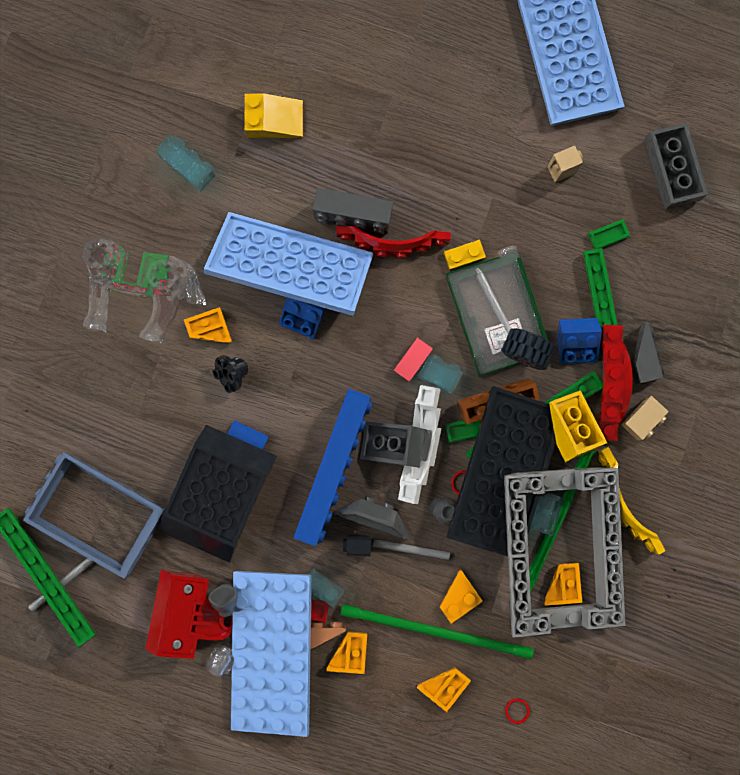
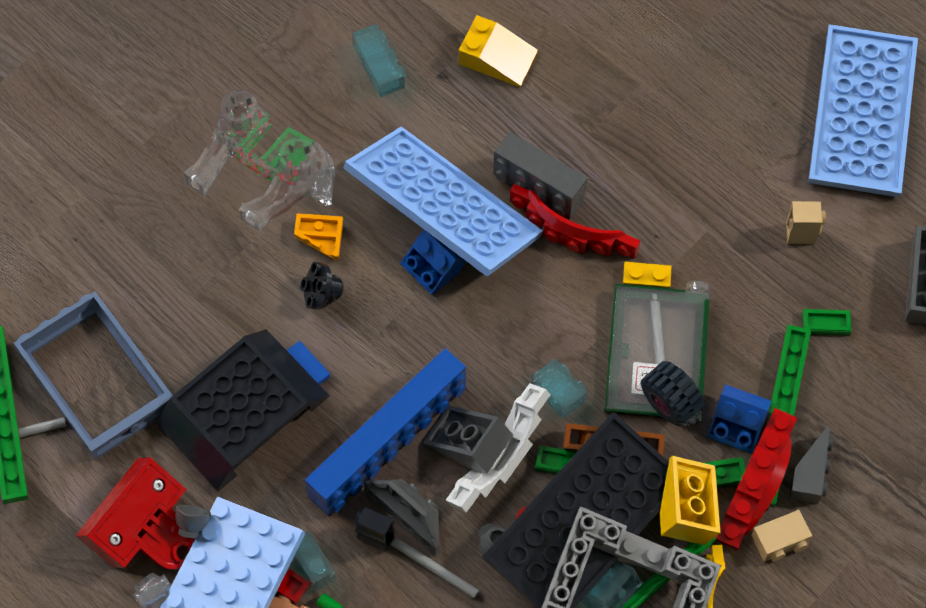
camera: 25 degrees right, 20 degrees down
(413, 359) = (534, 359): coral slope -> none

